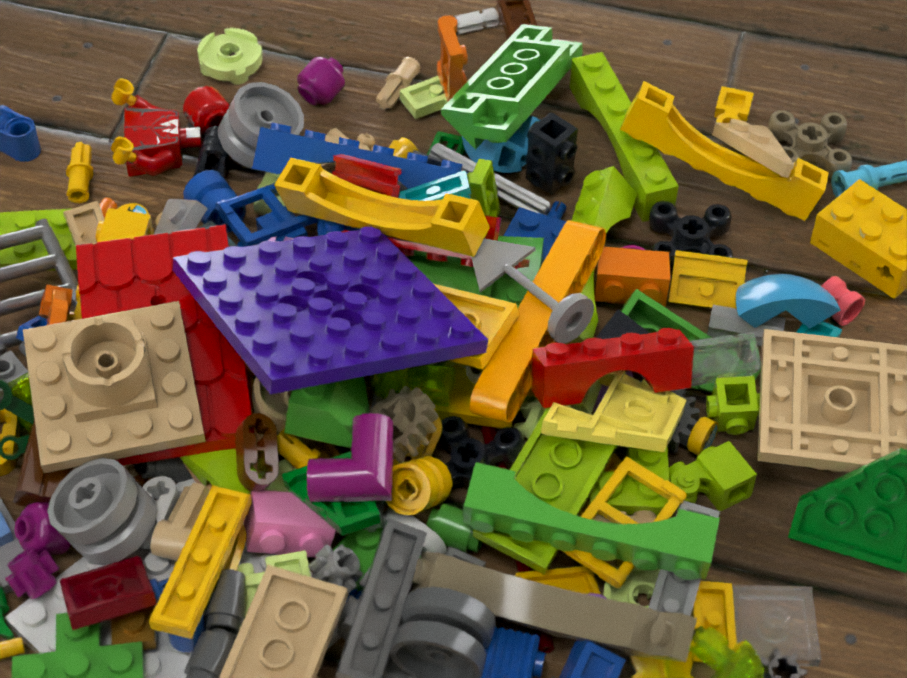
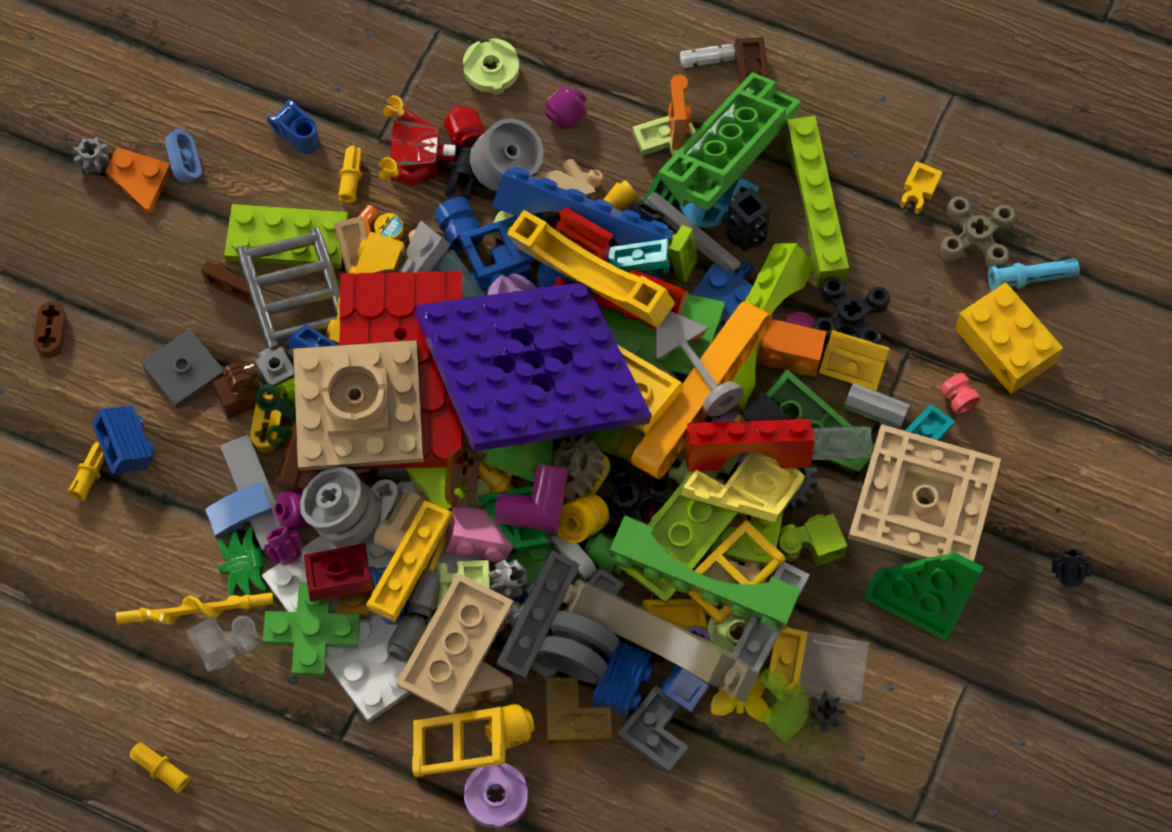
camera: 10 degrees right, 15 degrees up
(55, 304) = (320, 316): orange piece -> none
(396, 81) = (633, 116): tan axle -> none
(660, 124) = (941, 275): yellow arch -> none
(702, 435) = (816, 502): yellow tile -> none
(734, 404) = (845, 469): lime brick -> none
(756, 143) = (928, 232): tan wing -> none
(774, 293) = (908, 387): dark azure brick -> none

